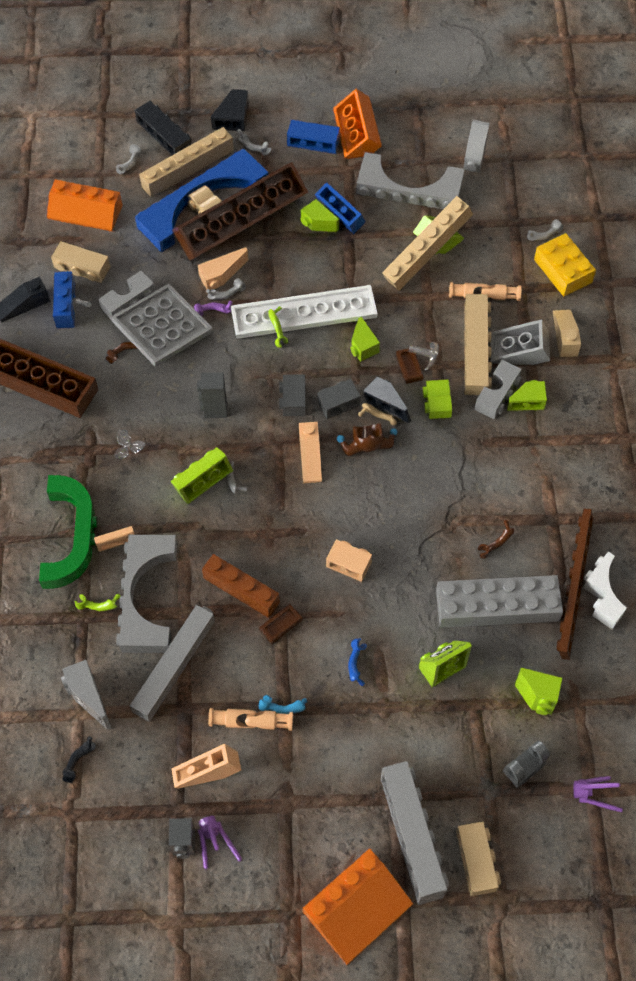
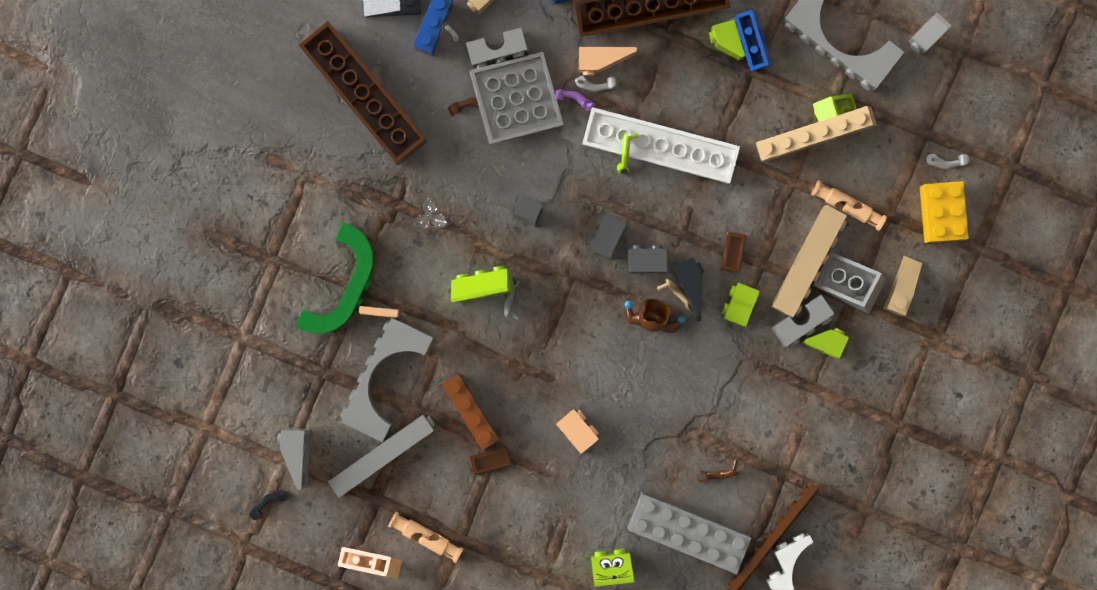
camera: 30 degrees right, 25 degrees up
(108, 605) = (340, 370): lime piece -> none
(266, 704) = (468, 544): dark azure piece -> none
(310, 452) = (593, 306): light nougat slope -> none
(352, 664) = (548, 515): blue piece -> none
(364, 341) = (701, 208): lime slope -> none
(432, 354) = (759, 253): clear plant -> none

